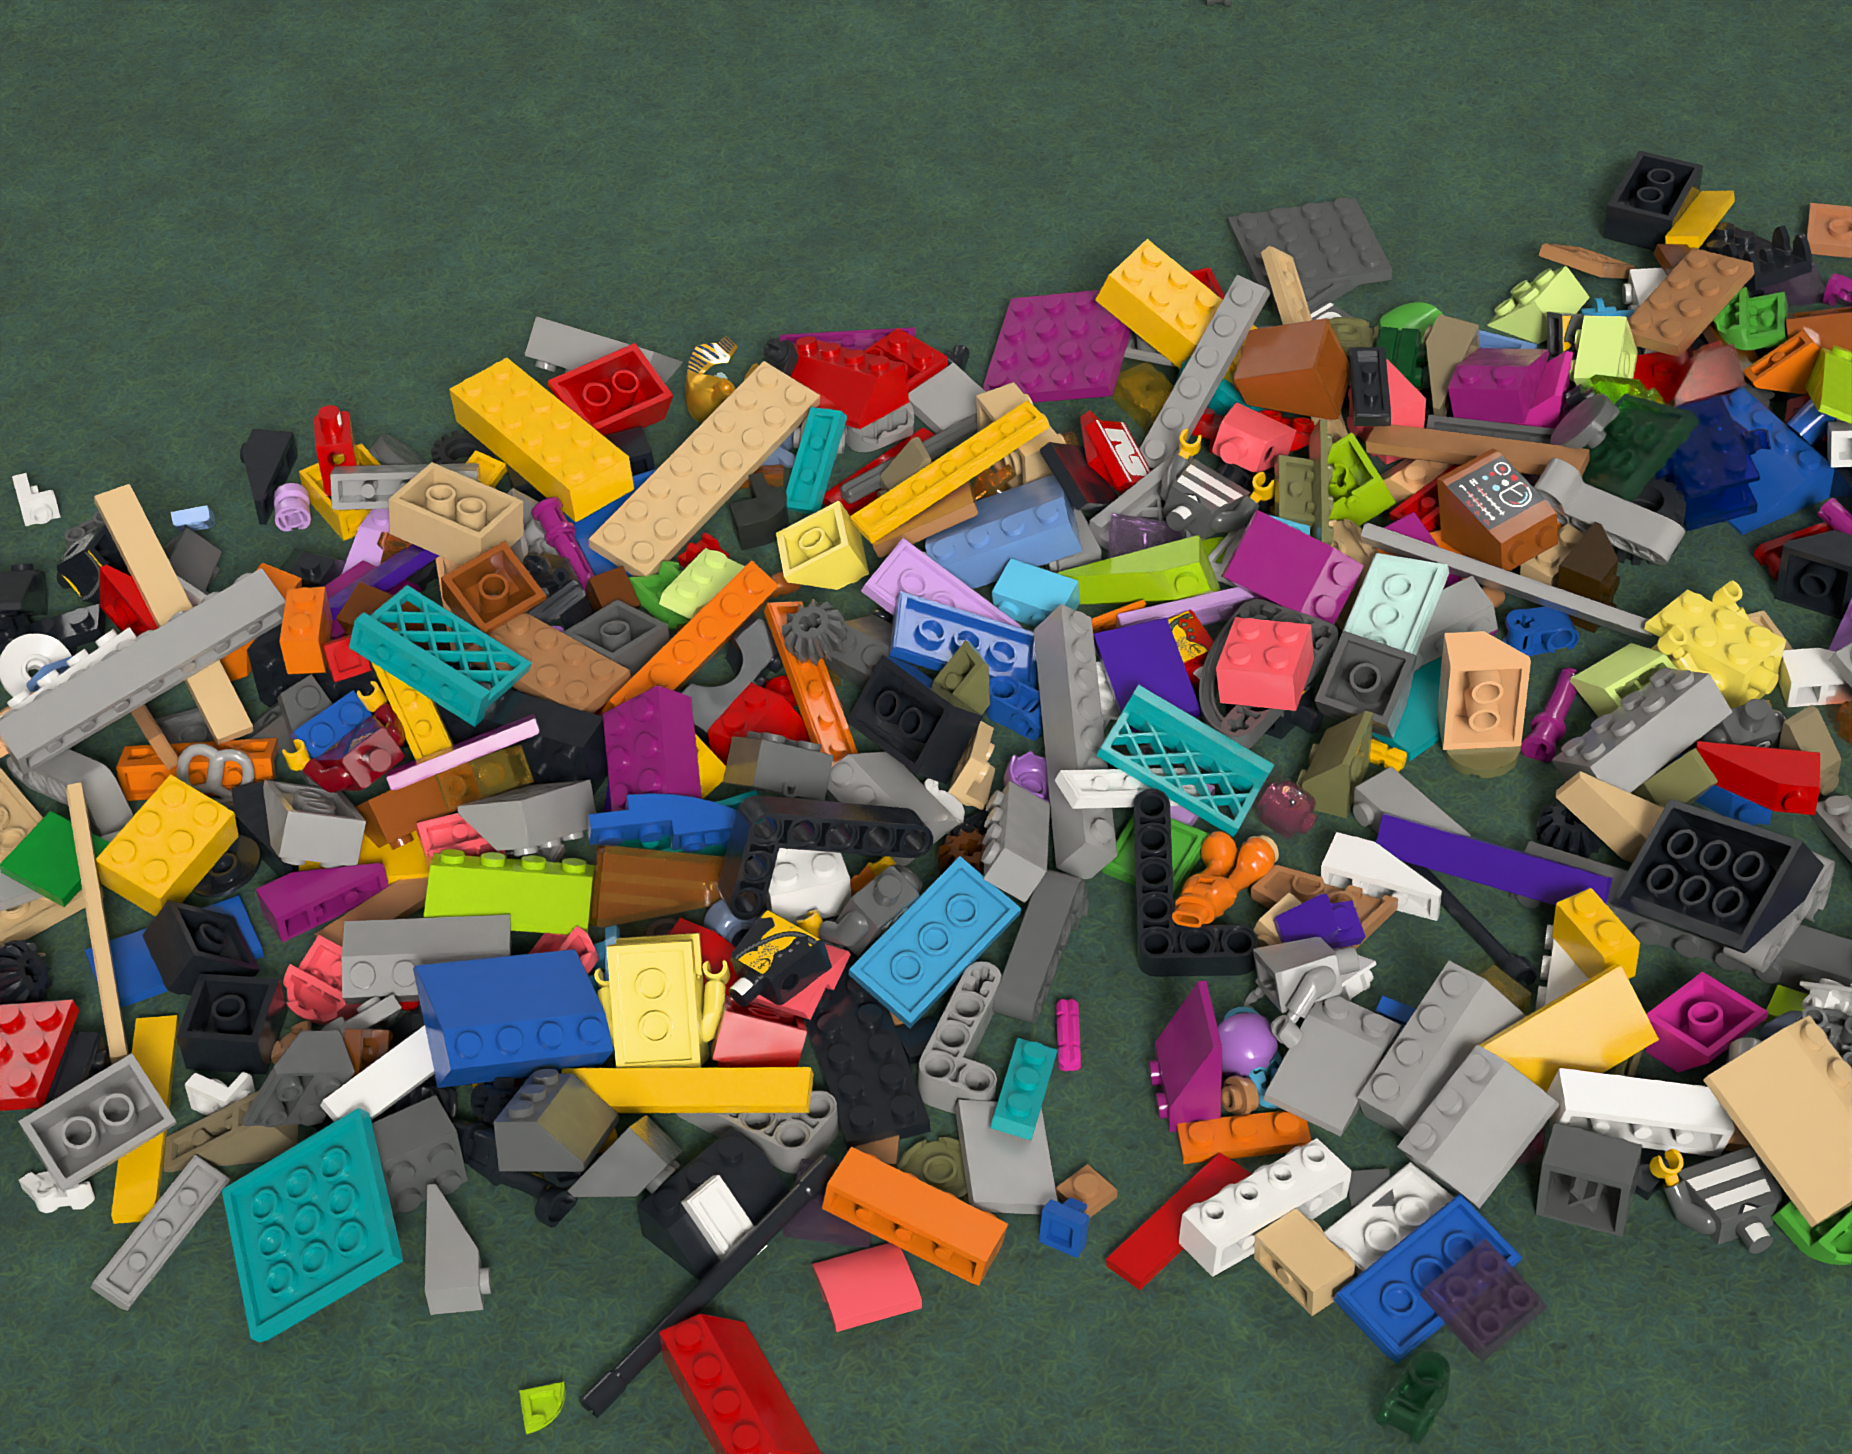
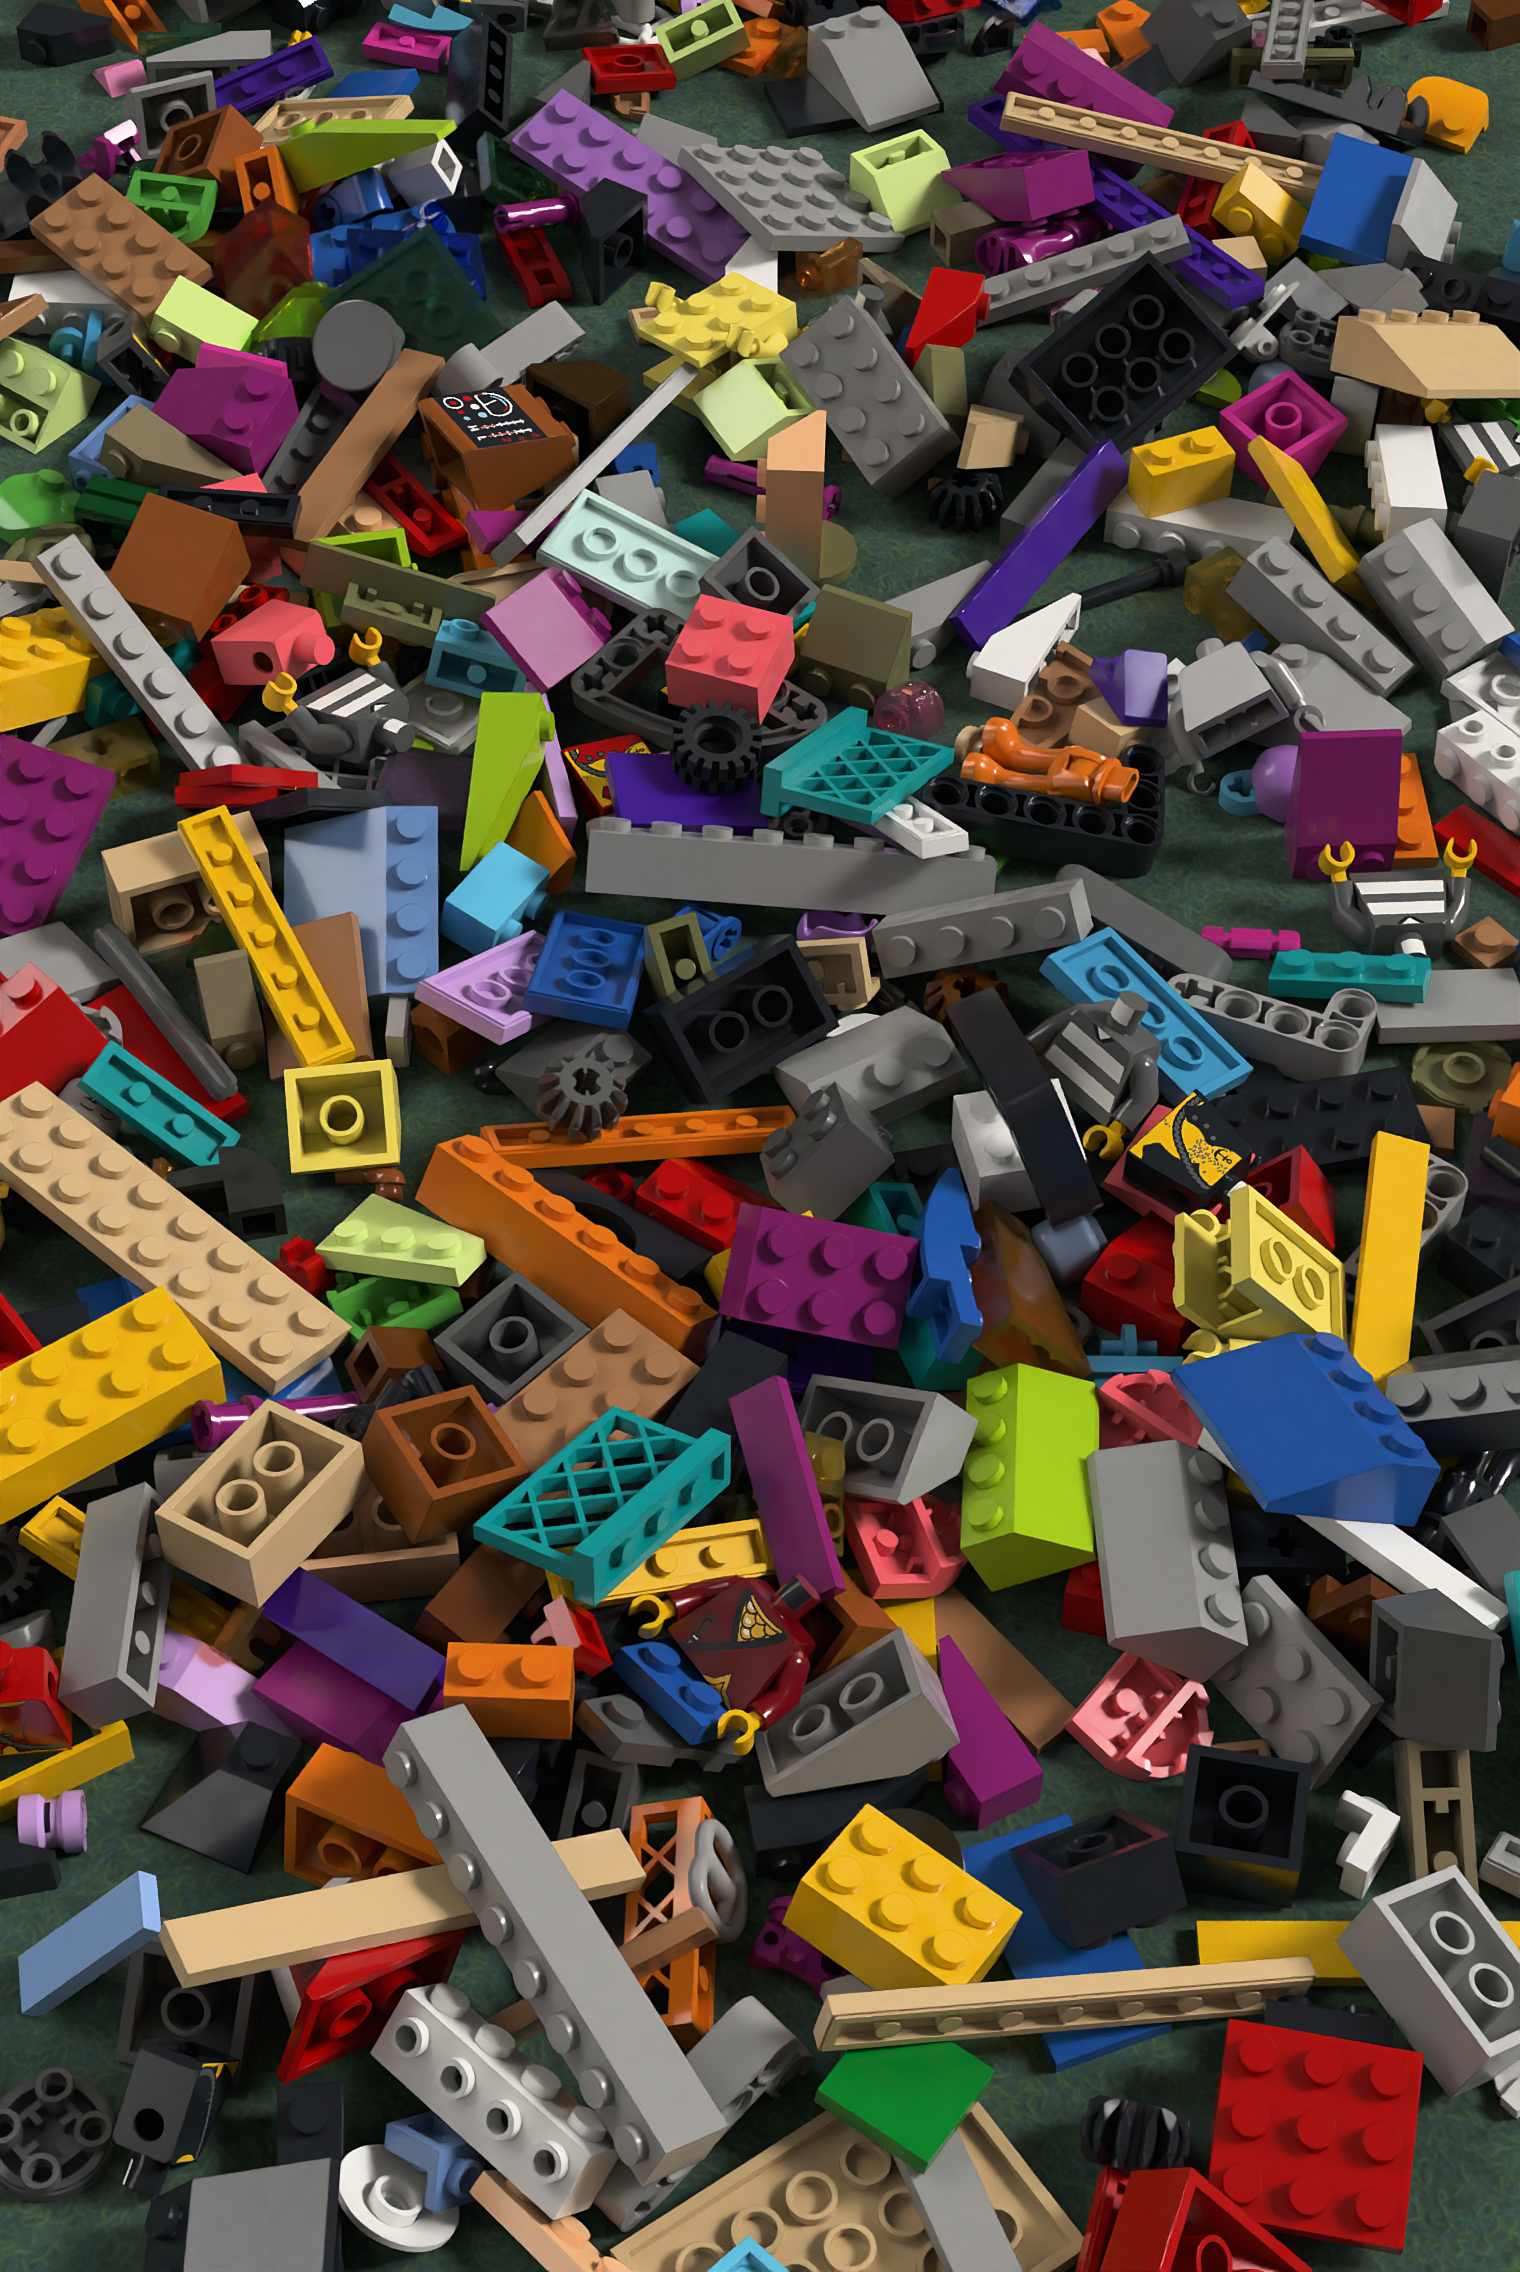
camera: 90 degrees left, 5 degrees up
(1101, 1117) = (1402, 908): none -> dark grey torso
(1176, 655) = (720, 726): none -> black tyre

